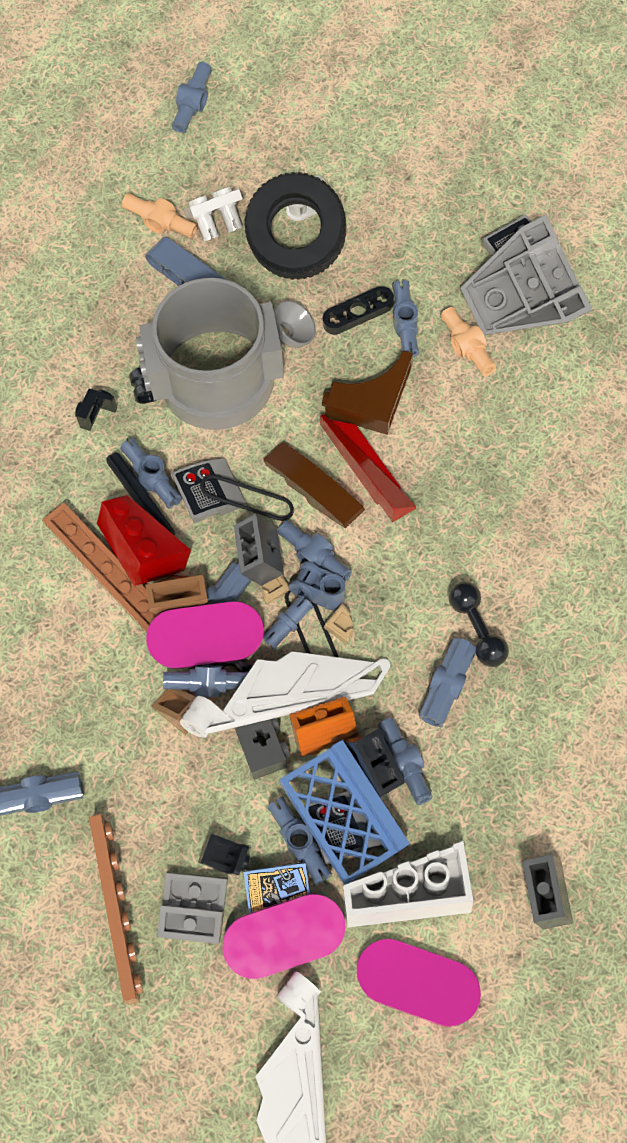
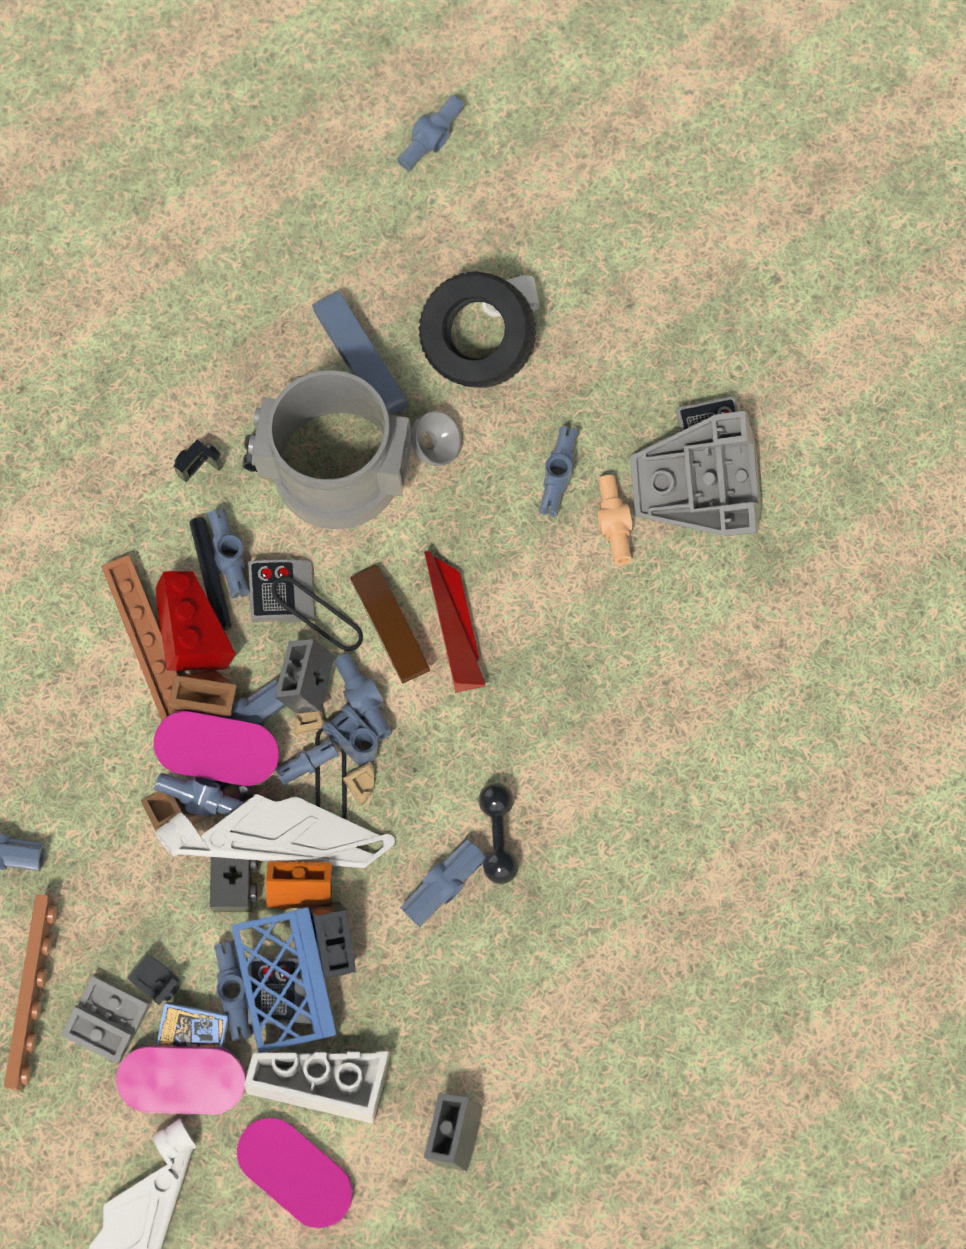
camera: 20 degrees right, 5 degrees up
(159, 215) = (344, 263): light nougat pin -> none
(222, 200) = (389, 273): white plate -> none
(337, 311) = (521, 433): black beam -> none
(371, 402) = (487, 554): reddish brown arch -> none
(407, 759) = (368, 948): sand blue pin -> none

